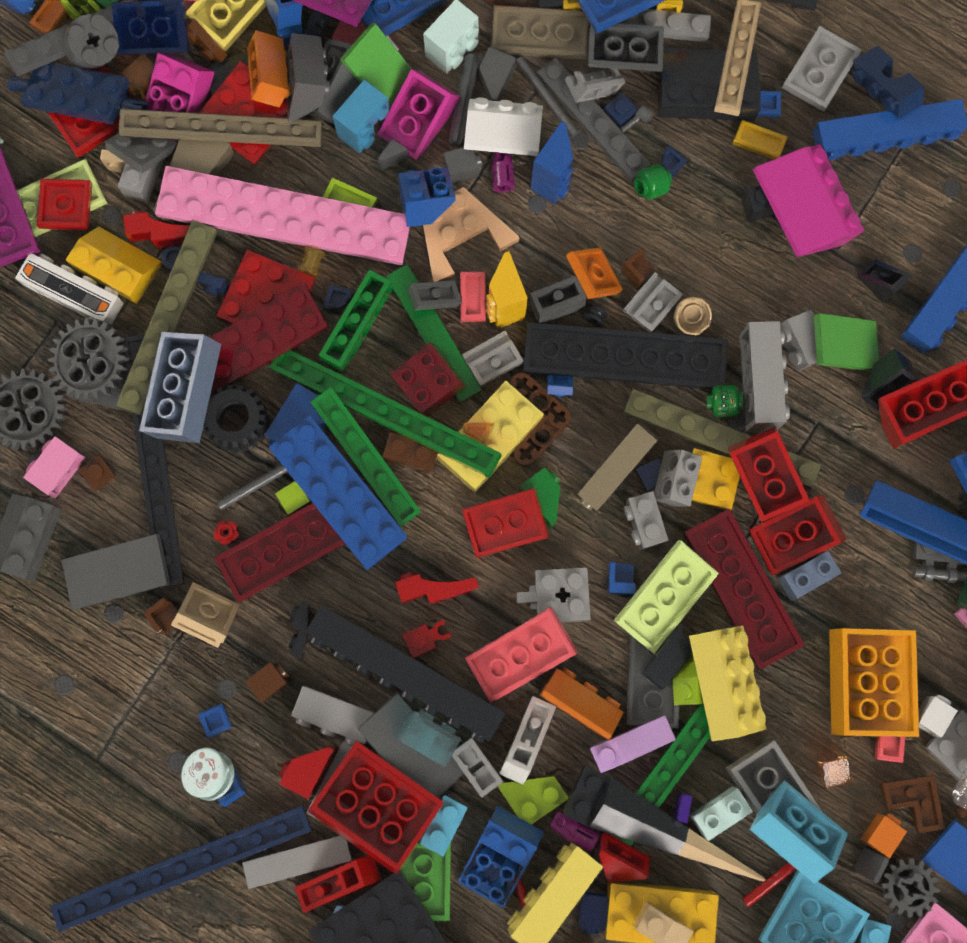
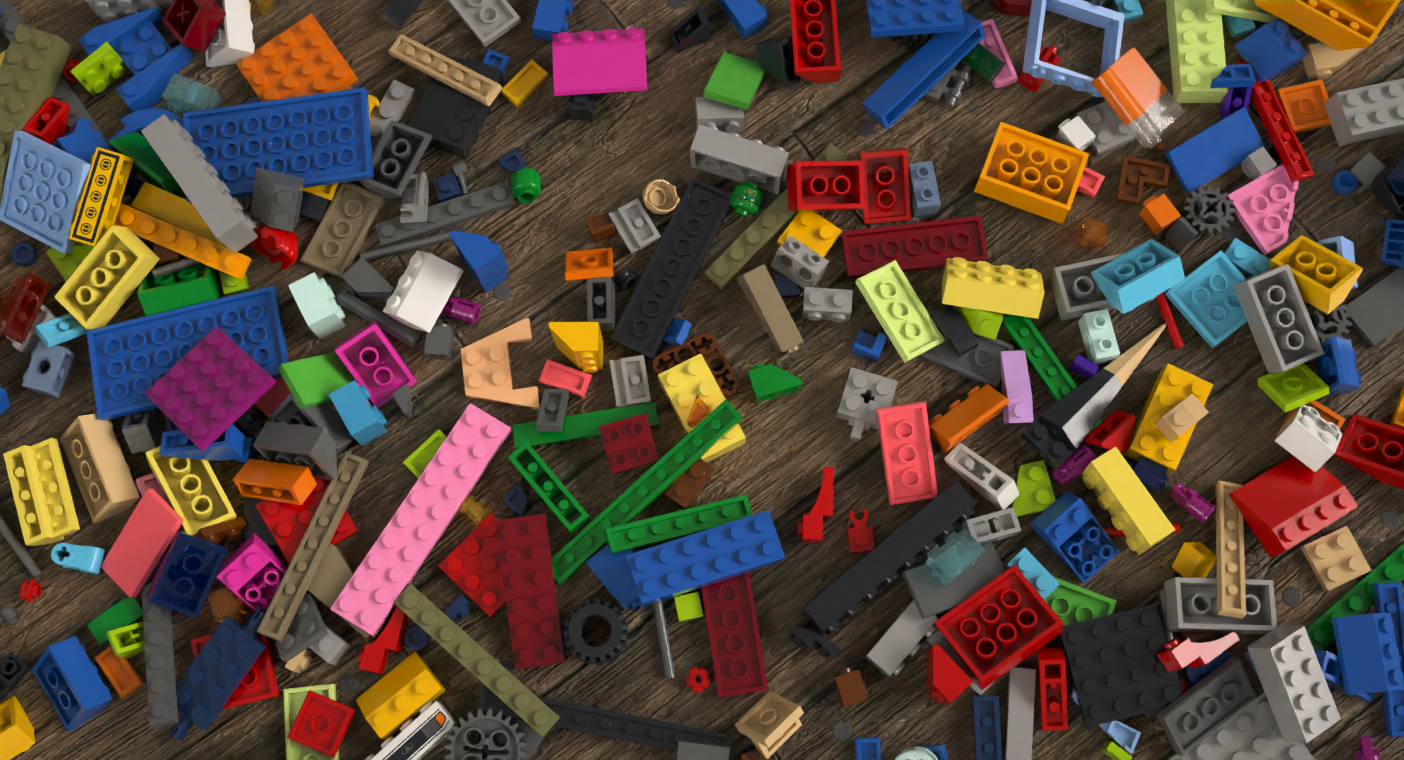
camera: 65 degrees left, 5 degrees down
(93, 55) = (174, 624): dark grey brick -> none
(180, 387) = (551, 667): sand blue brick -> none
(425, 195) = (457, 383): blue slope -> none
(505, 523) = (784, 423): red tile -> none

